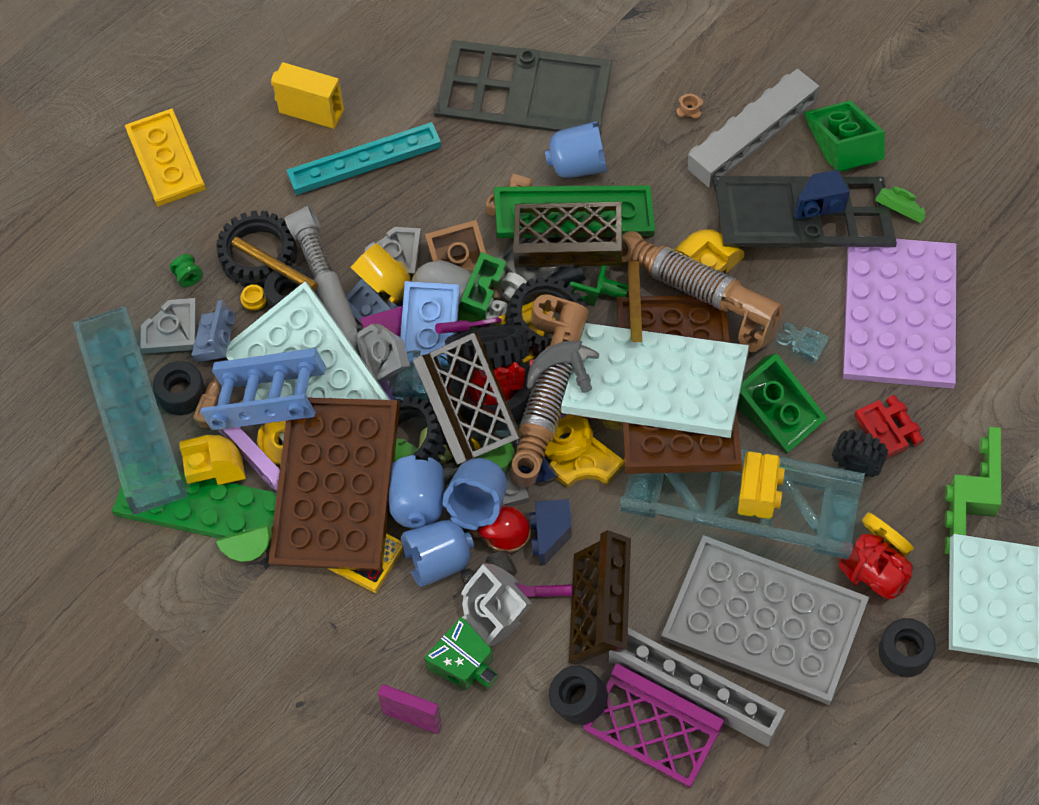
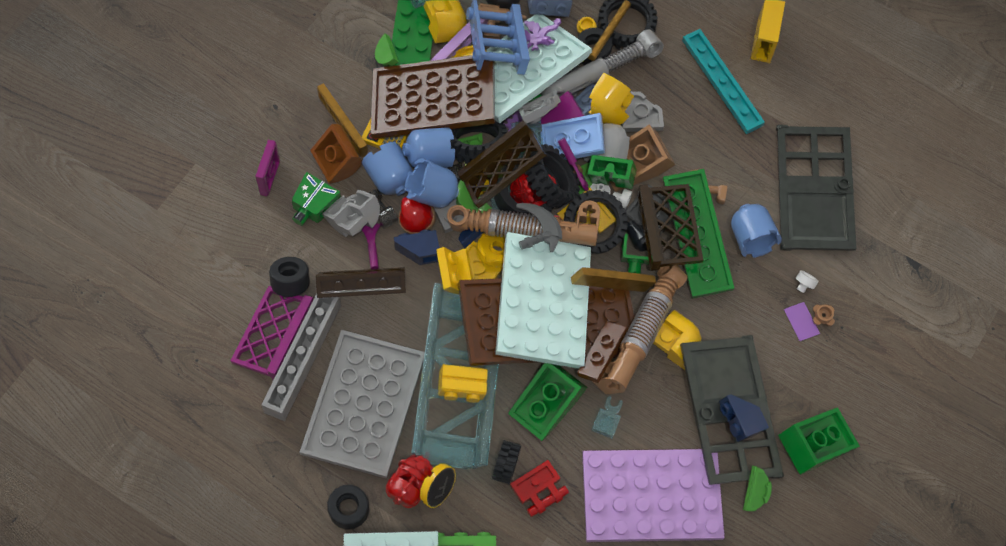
camera: 75 degrees right, 5 degrees up
(268, 345) = (539, 35): none -> medium lavender piece
(343, 610) = (341, 119): none -> pearl gold tile
(400, 619) = (336, 154): none -> dark orange brick
(594, 483) = (453, 267): none -> yellow bracket
(646, 115) = (806, 280): none -> white tile
(691, 131) = (801, 321): none -> medium lavender sticker
(728, 326) = (602, 352): none -> plate
(752, 127) = (811, 365): light grey brick -> none

